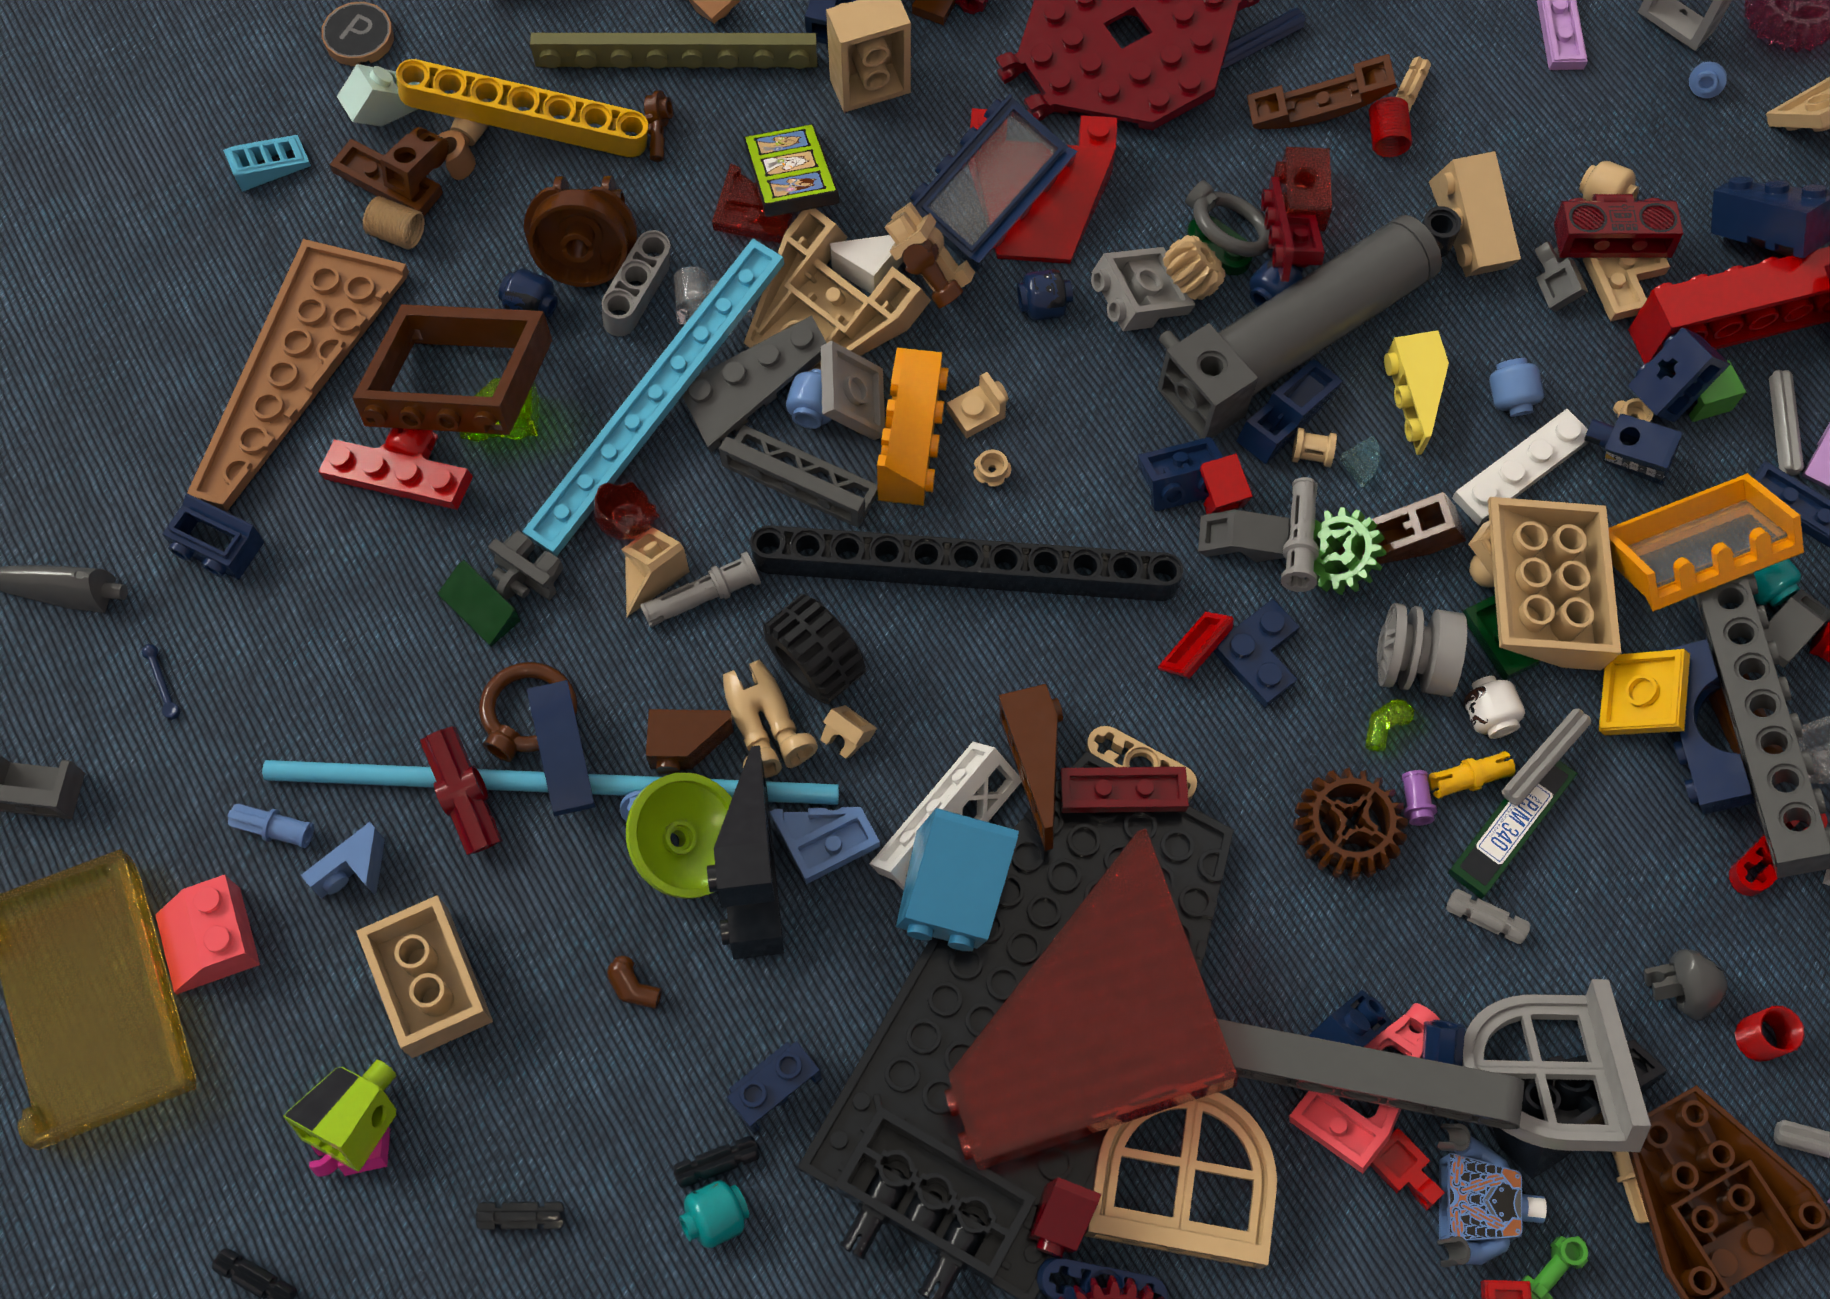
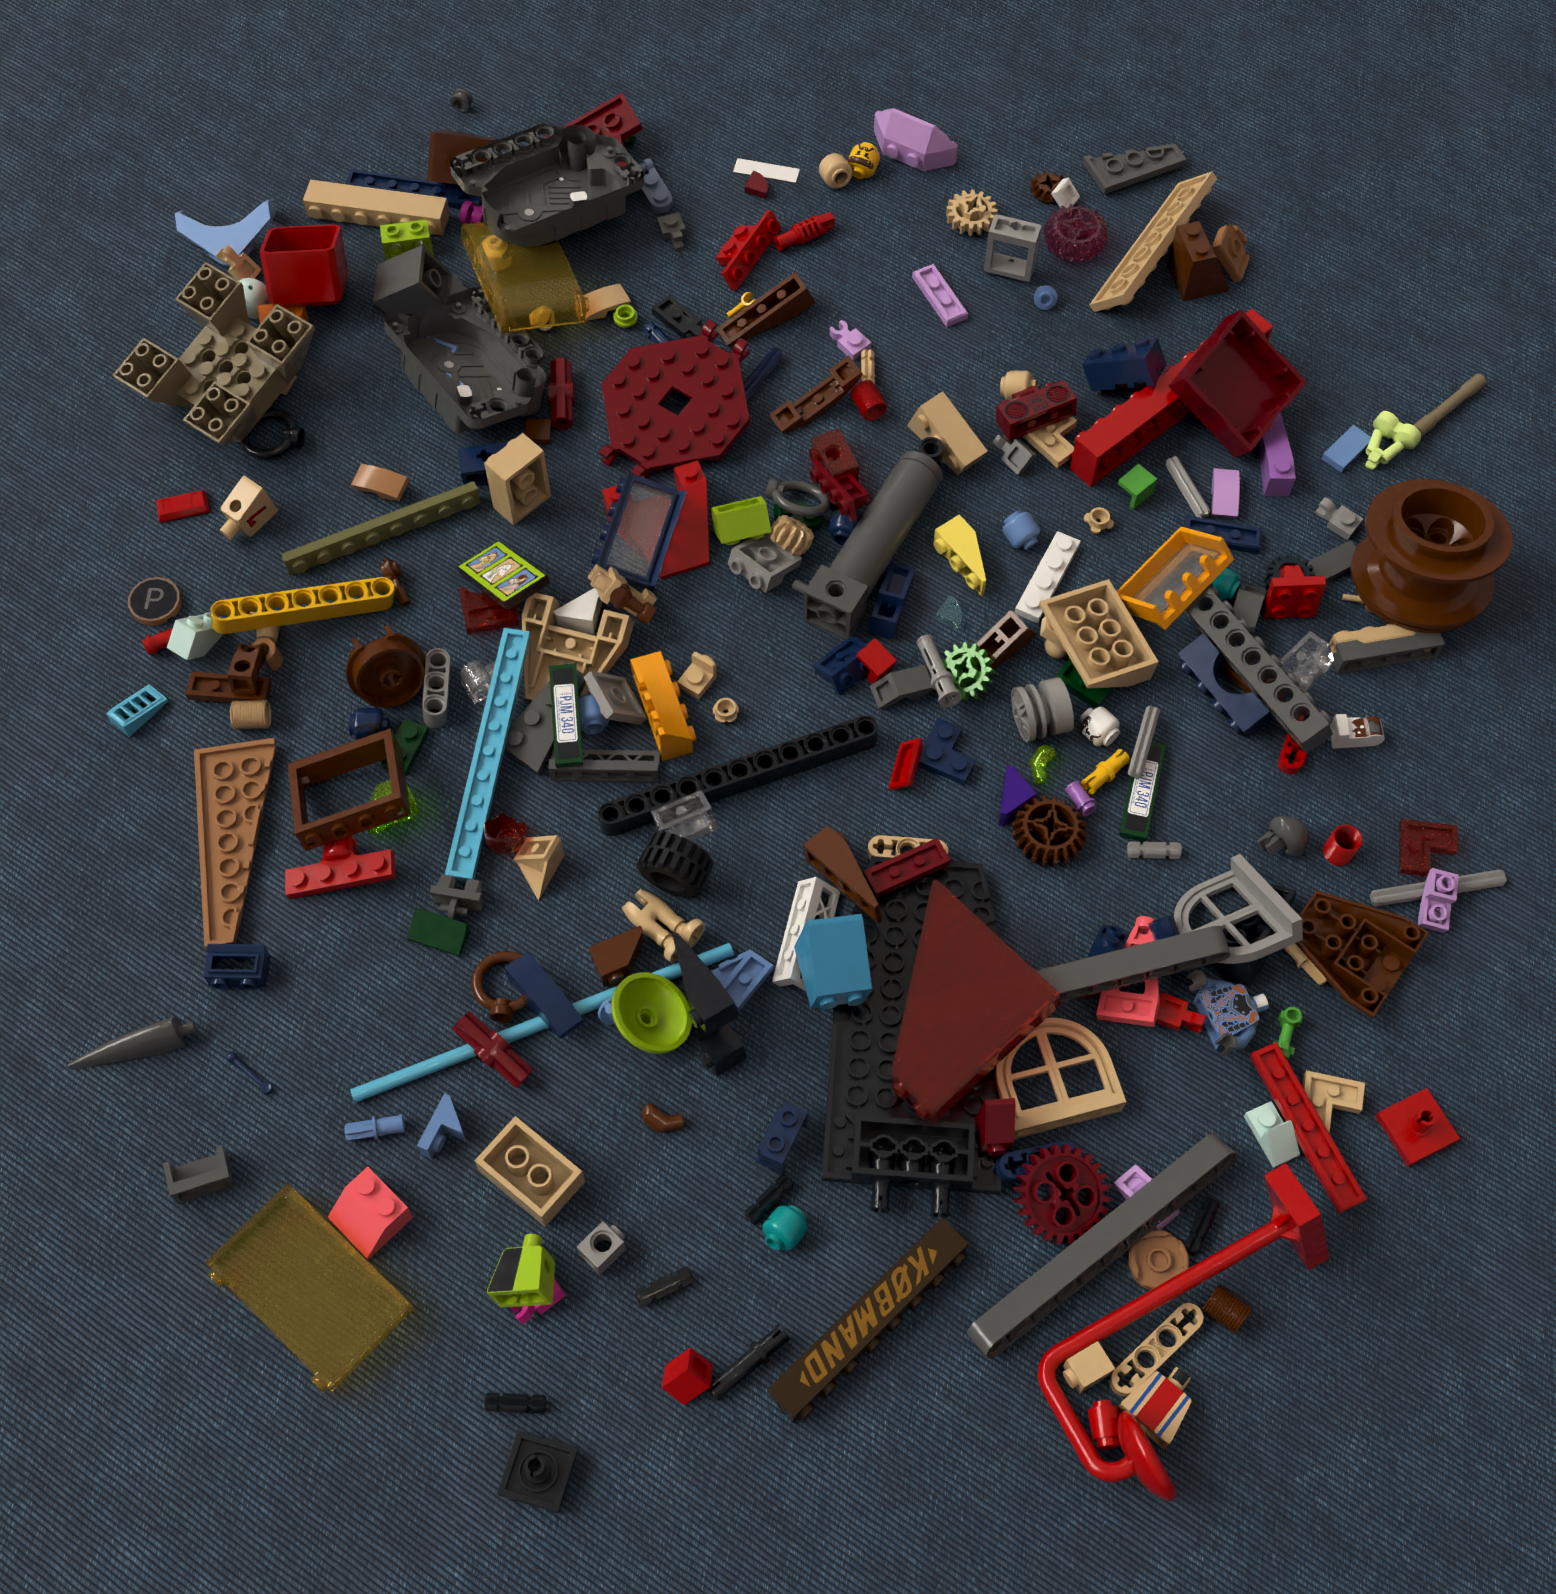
camera: 25 degrees left, 5 degrees down
(328, 85) = (157, 641): none -> red pin
(448, 1116) = (602, 1260): none -> light grey brick
(570, 339) = (411, 739): none -> dark green plate
(718, 583) = (588, 854): light grey pin -> none
(773, 387) = (566, 715): none -> tile
(850, 726) = (717, 904): tan tile -> none
(861, 591) = (686, 817): none -> clear brick
(1044, 294) = (704, 589): dark blue head -> none
(1134, 221) = (741, 520): none -> lime slope
(1314, 447) = (918, 616): tan bush -> none
(1326, 752) = (1014, 795): none -> dark purple slope
(1405, 39) = (850, 342): none -> lavender plate
(1645, 693) = (1182, 680): yellow plate -> none
(1652, 448) = (1118, 534): dark blue torso -> none
(1678, 374) = (1113, 496): dark blue brick -> none

